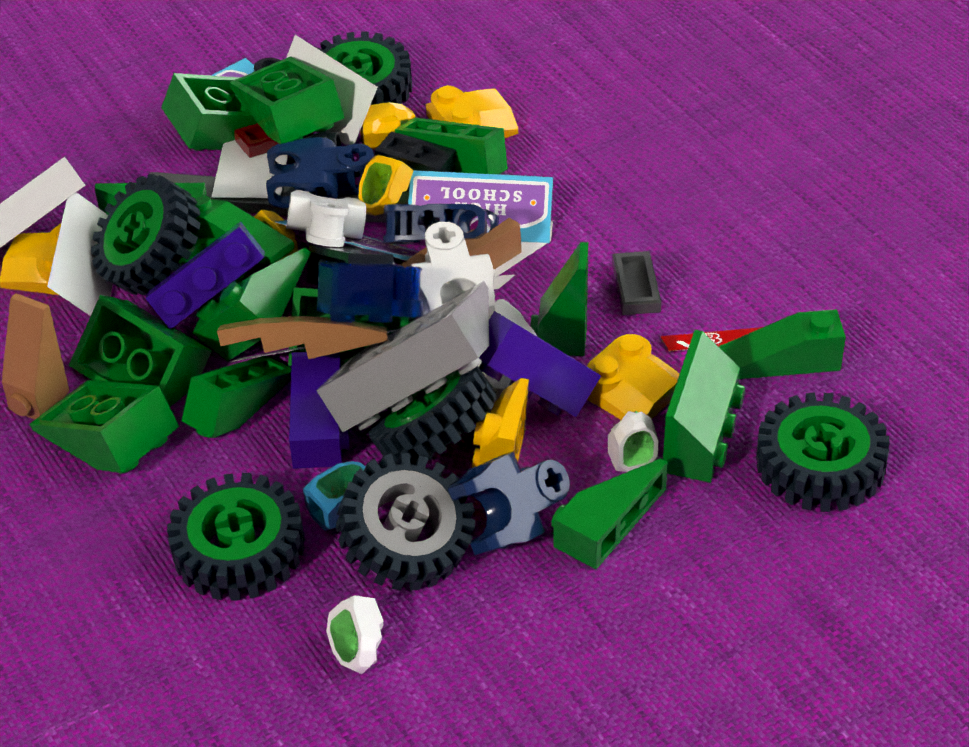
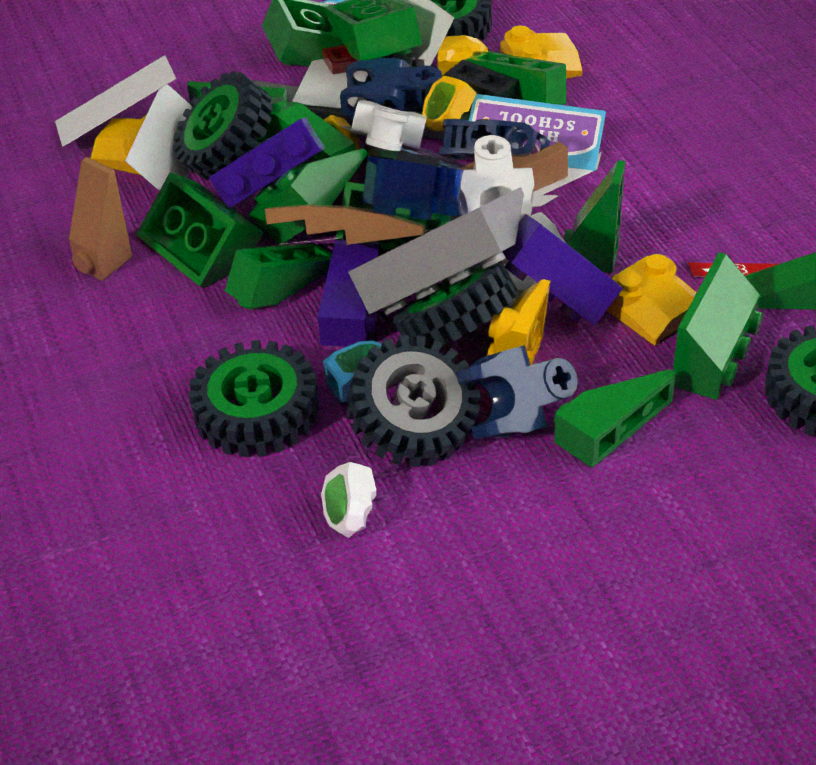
camera: 10 degrees right, 0 degrees up
(108, 423) = (160, 287): green slope -> none
(632, 442) = (645, 351): white rock -> none
(636, 283) = (672, 212): dark grey tile -> none

